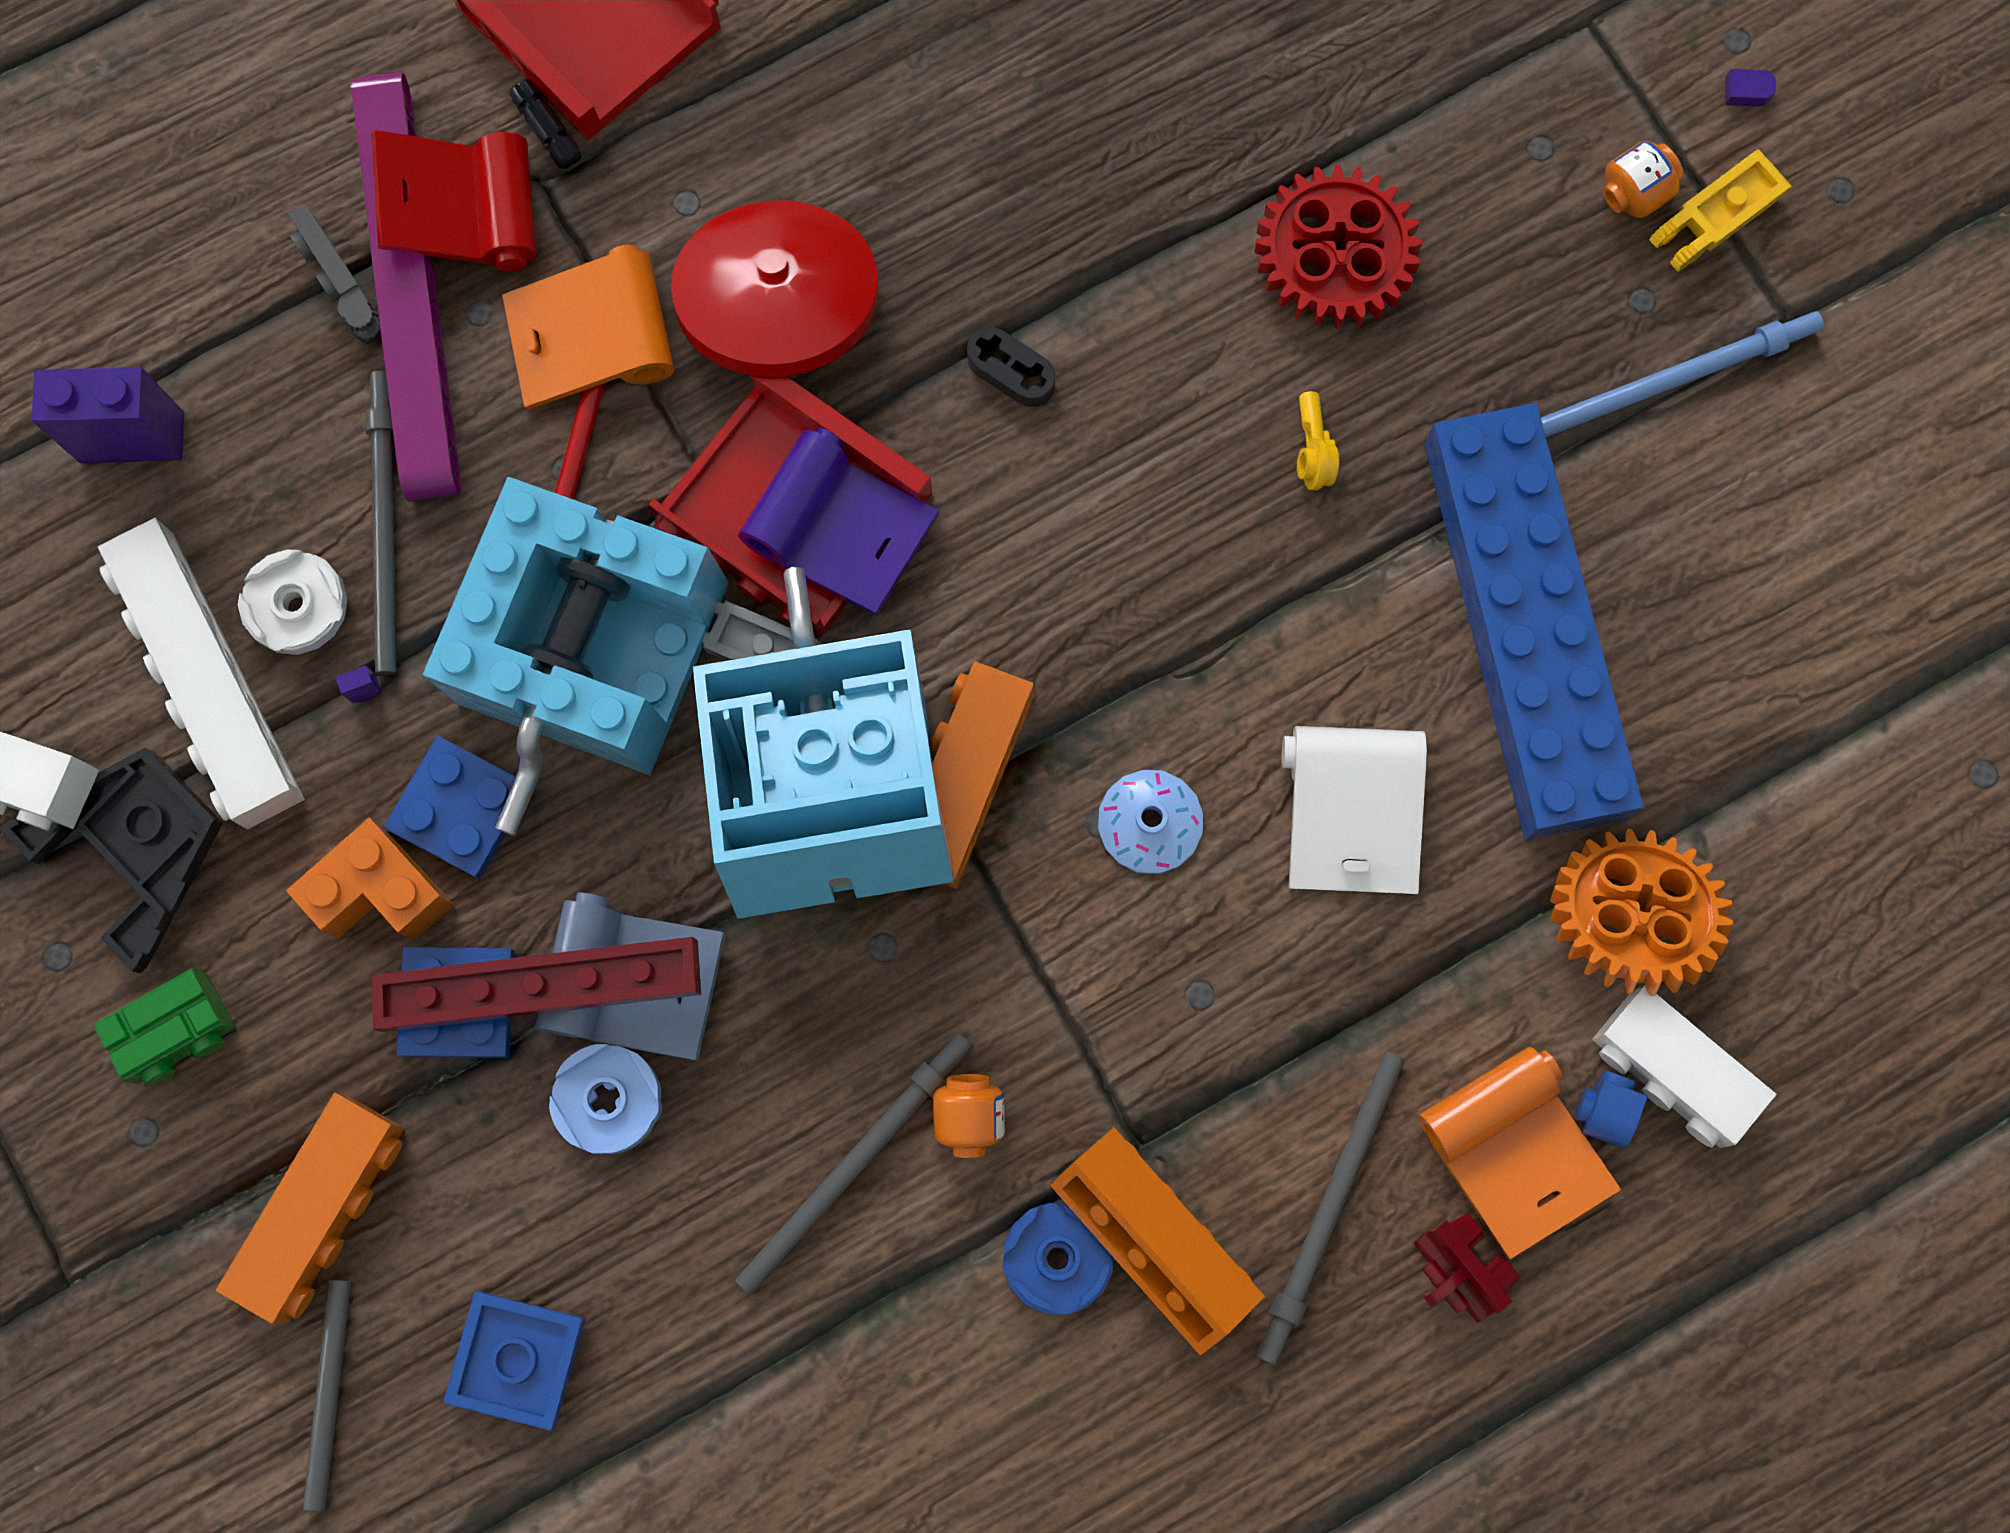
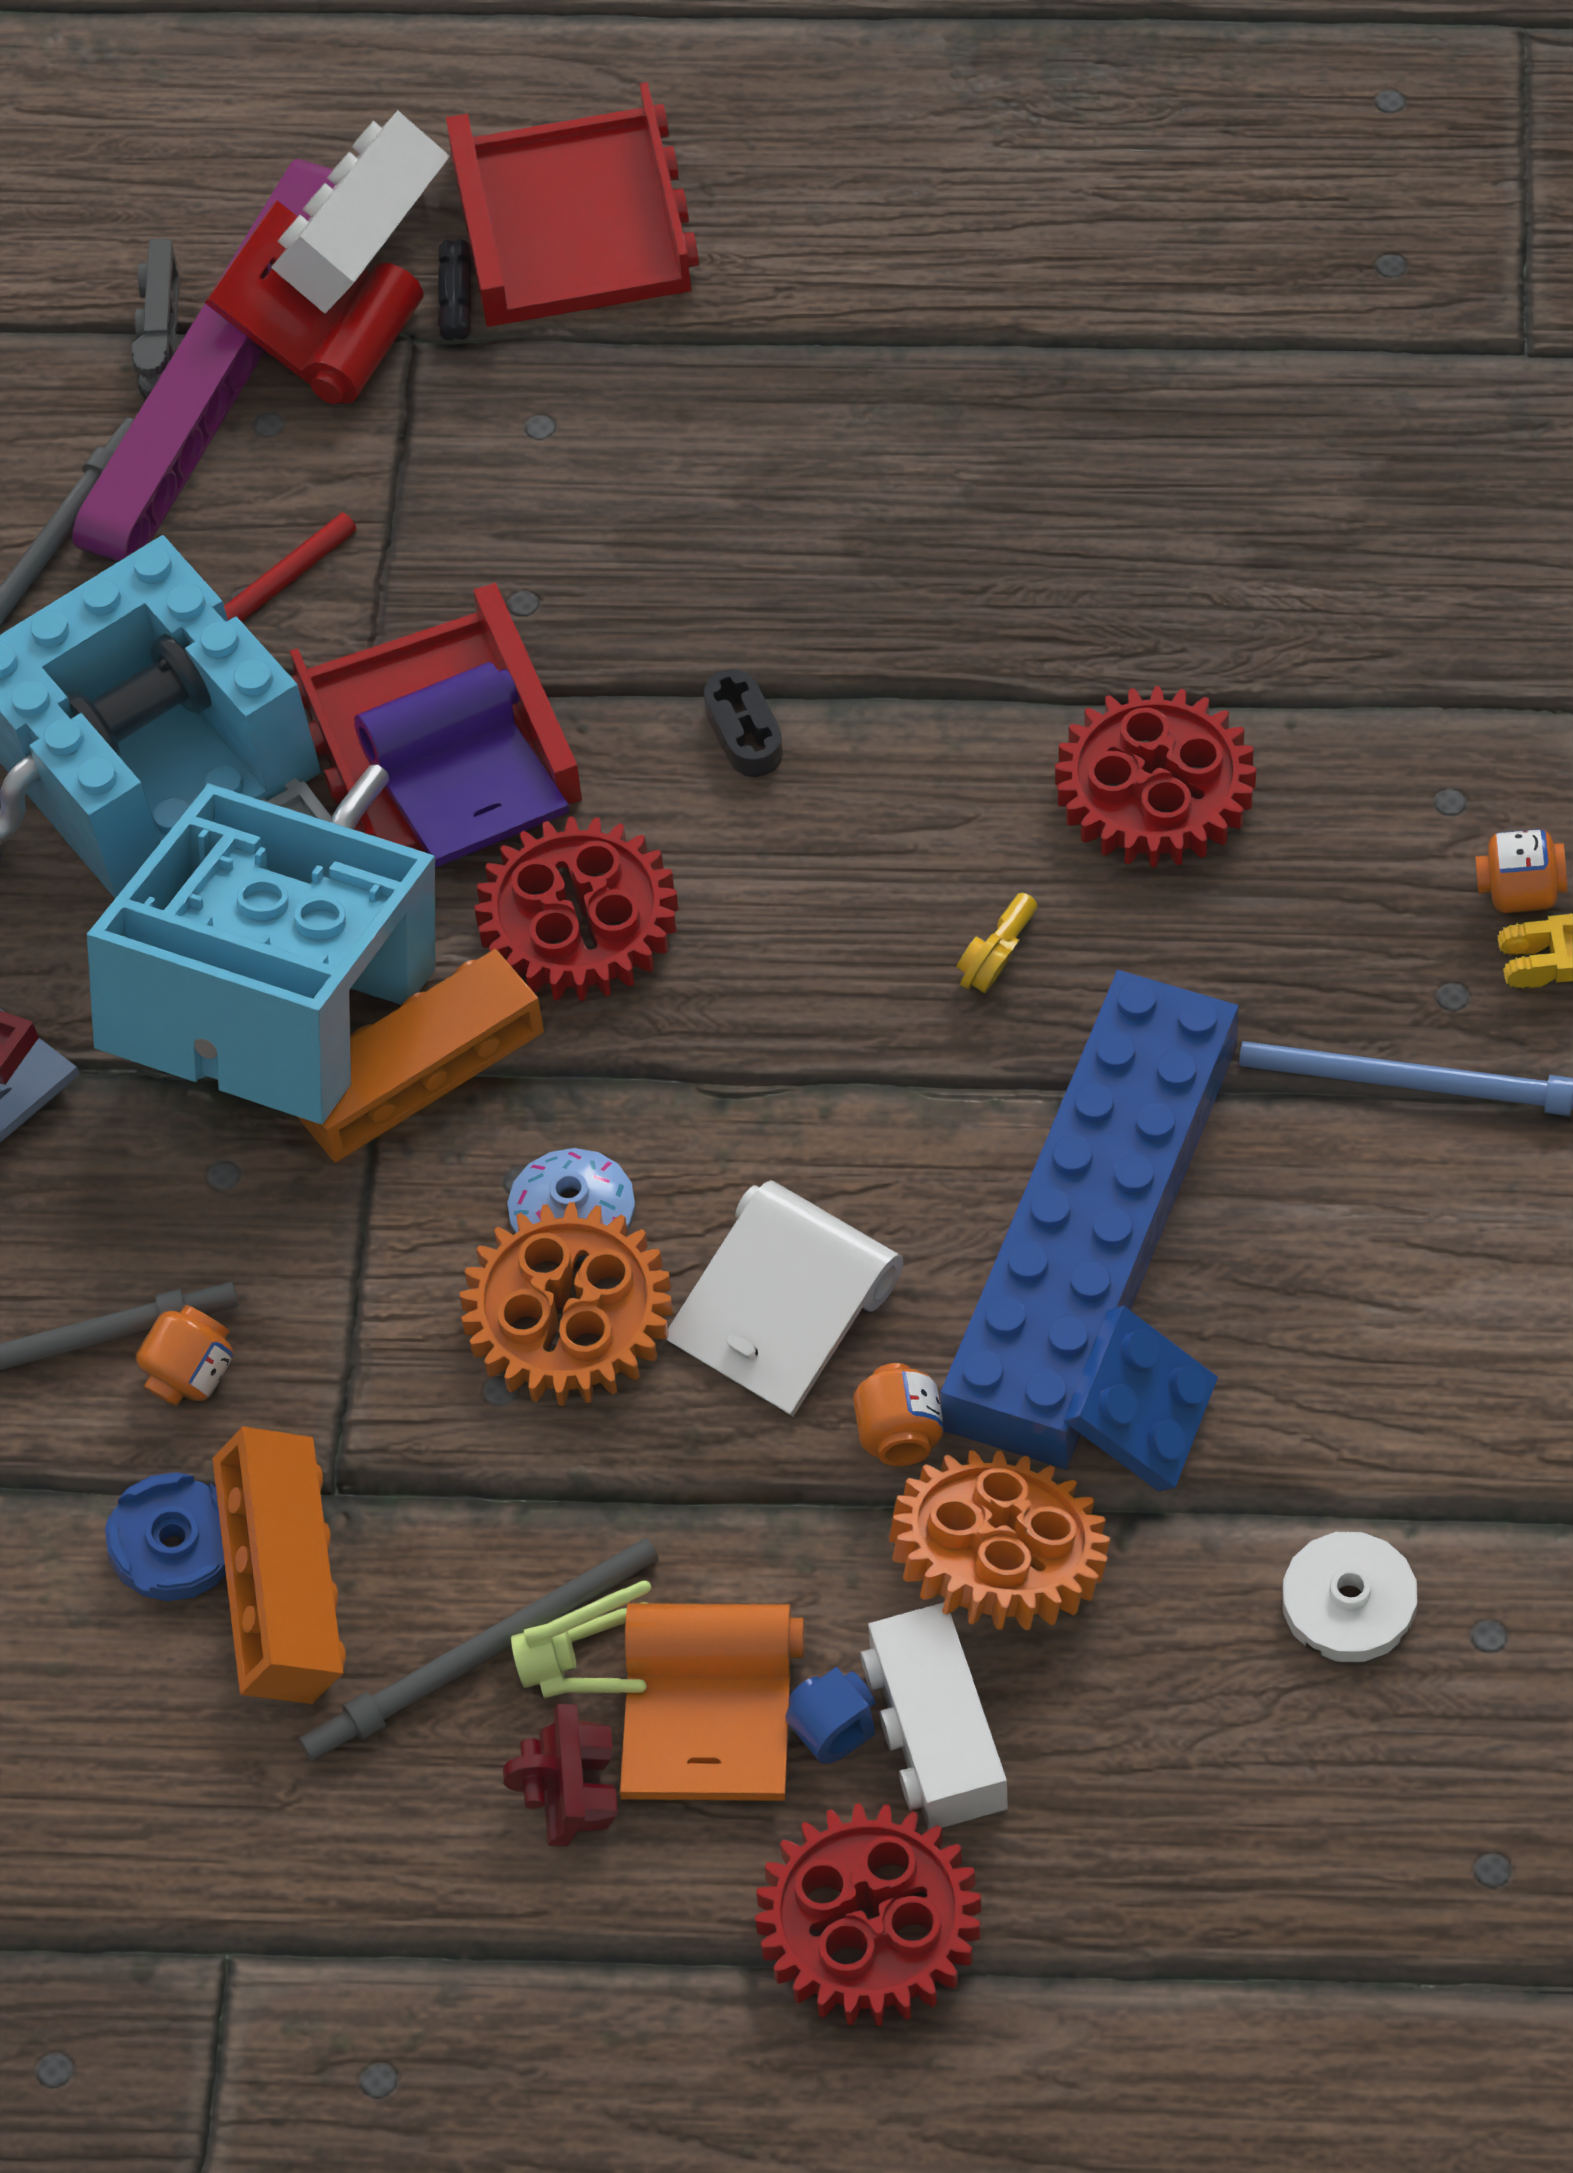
camera: 35 degrees right, 20 degrees down
(440, 102) = (360, 211): none -> white brick
(591, 328) = (362, 482): orange door -> none
(775, 288) = (559, 531): red dish -> none
(1030, 554) = (630, 891): none -> red gear
(1259, 895) = (622, 1315): none -> orange gear
(1385, 1184) = (547, 1650): none -> yellowish green plant
(1504, 855) = (898, 1414): none -> orange head
(1664, 745) = (1140, 1398): none -> blue plate
(1777, 1276) = (891, 1967): none -> red gear
(1862, 819) = (1342, 1625): none -> white plate

